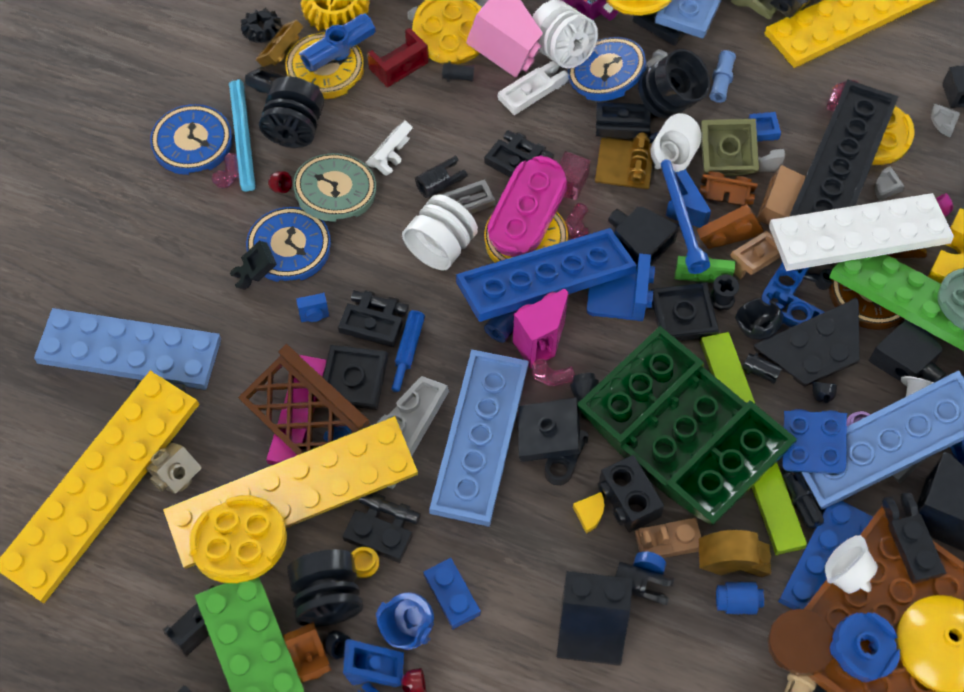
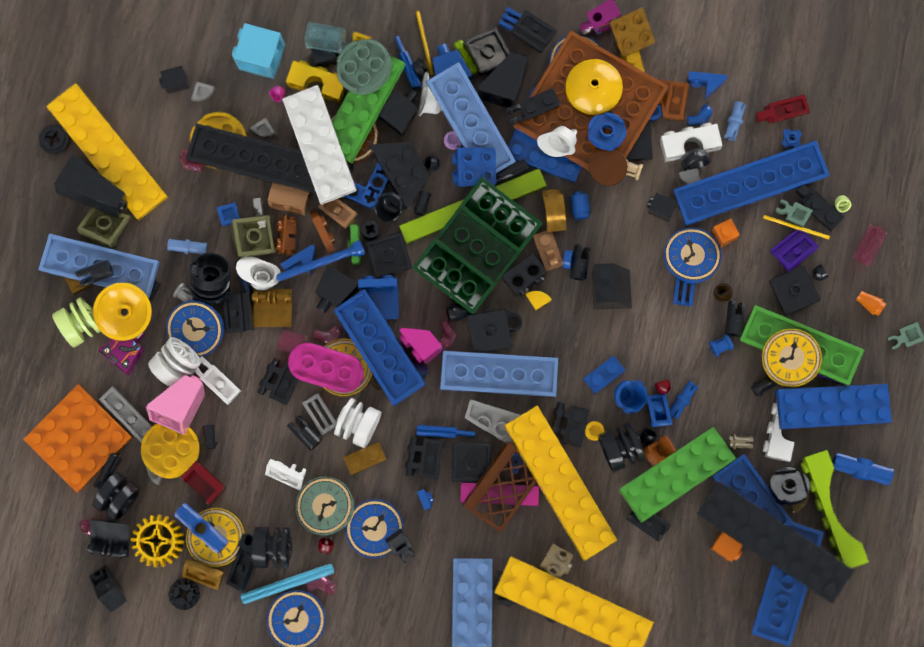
camera: 90 degrees left, 20 degrees up
(238, 539) = (602, 504): yellow tile -> none
(390, 245) = (364, 458): none -> pearl gold plate

